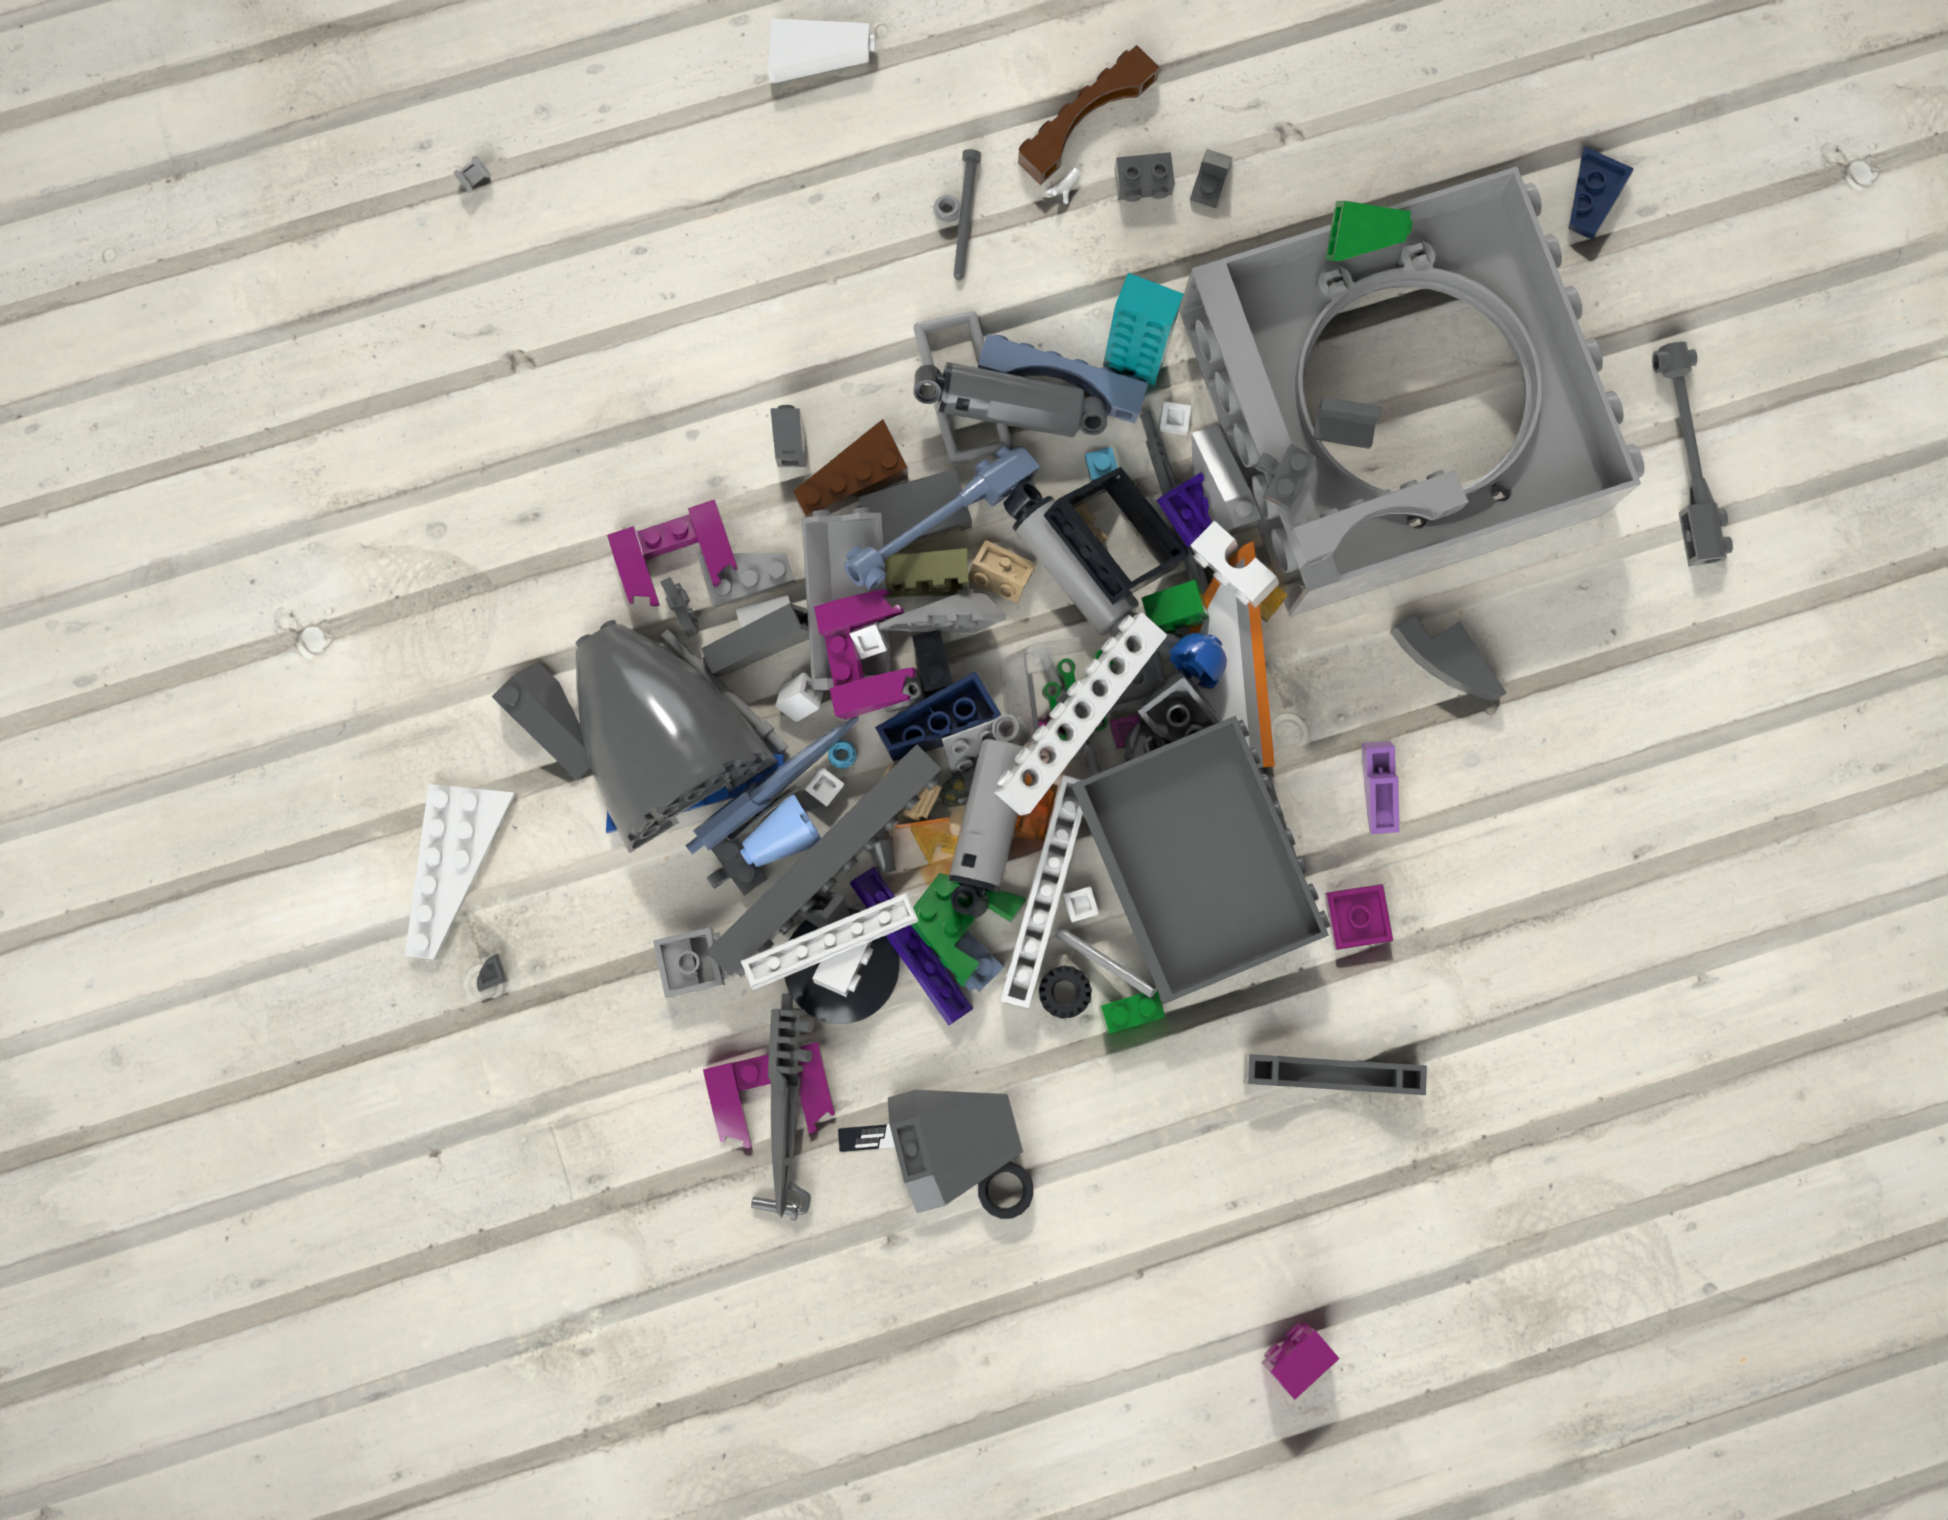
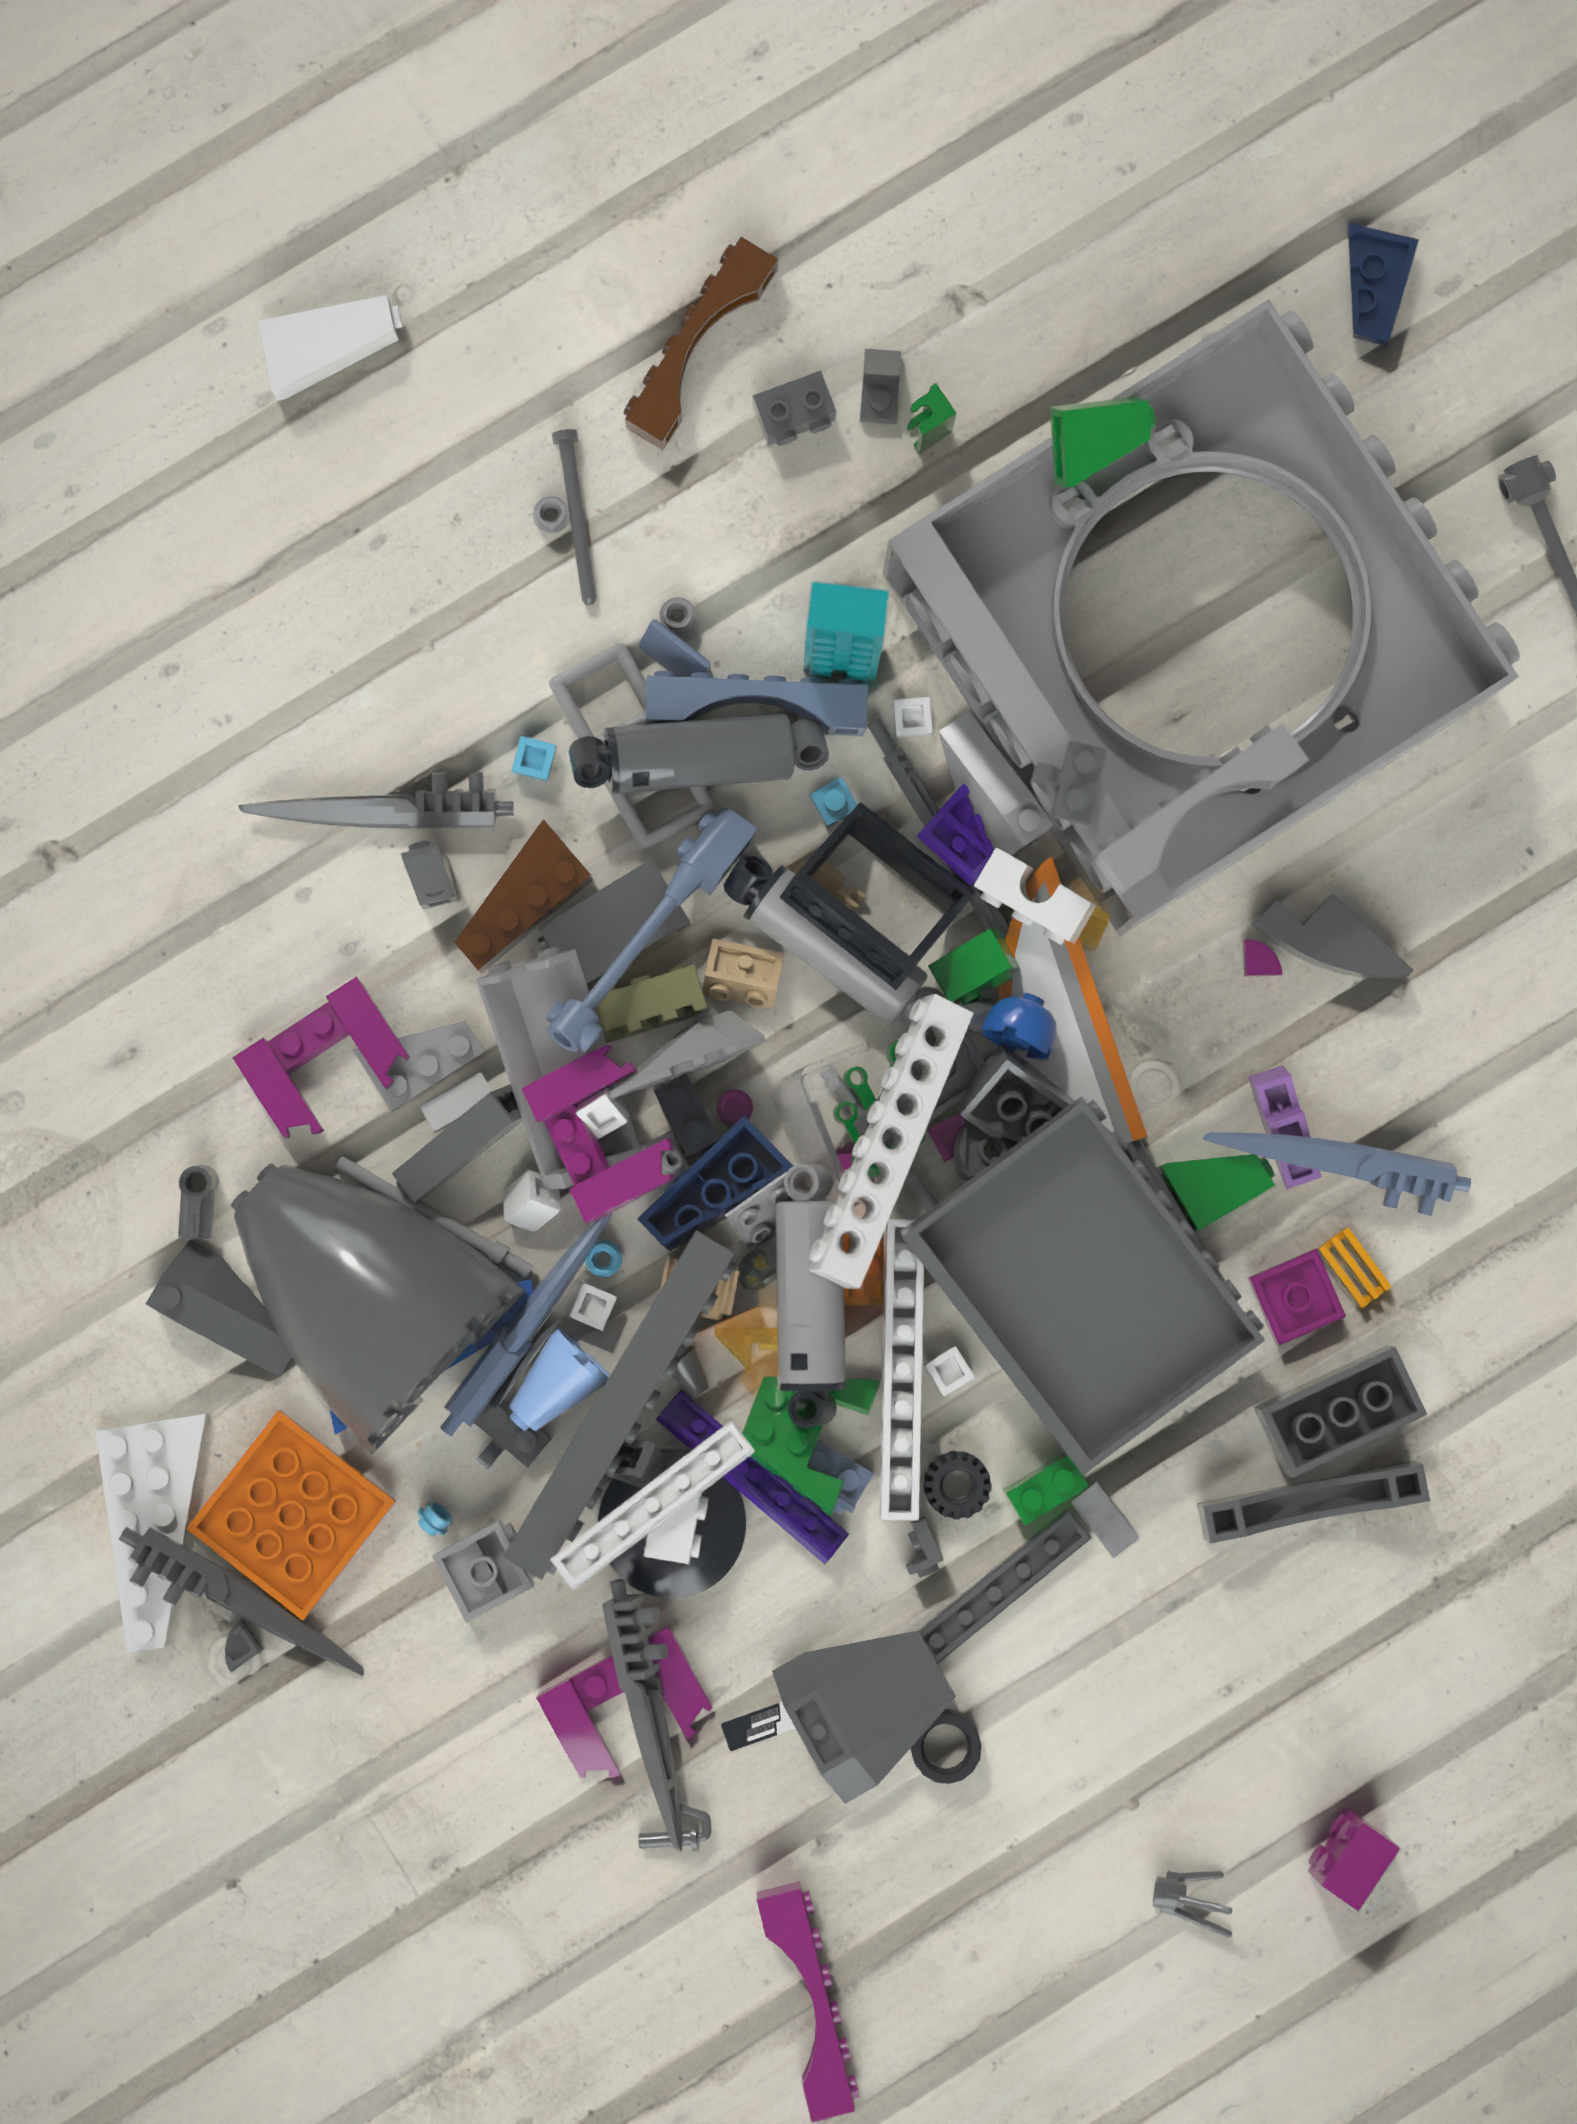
camera: 20 degrees left, 5 degrees up
(473, 909) = (197, 1574): none -> dark grey piece
(551, 638) = (196, 1206): none -> dark grey piece
(556, 884) = (291, 1514): none -> orange plate
(663, 915) = (434, 1519): none -> medium azure plate
(677, 600) = (346, 1123): dark grey plate -> none
(801, 394) = (425, 810): none -> piece
(847, 1425) = (825, 2078): none -> magenta arch
(888, 377) = (534, 758): none -> medium azure plate
(968, 664) = (733, 1106): none -> magenta plate
(1008, 323) = (672, 651): none -> sand blue slope
(1024, 295) = (682, 605): none -> light grey plate
(1027, 1027) = (923, 1540): none -> dark grey bracket
(1065, 185) = (694, 445): white bar -> none
(1082, 1078) = (1004, 1584): none -> dark grey tile
(1106, 962) = (998, 1436): light grey bar -> none
(1151, 1352) = (1170, 1894): none -> dark grey plant
(1171, 1049) = (1105, 1520): none -> flat silver sticker
(1247, 208) = (934, 421): none -> green hinge
(1318, 816) = (1216, 1185): none -> green slope
(1346, 422) = (1132, 692): dark grey panel -> none
(1372, 1010) = (1340, 1411): none -> dark grey brick
(1391, 659) = (1260, 960): none -> magenta tile
(1427, 924) = (1373, 1292): none -> light orange tile
(1447, 834) = (1379, 1166): none -> sand blue piece

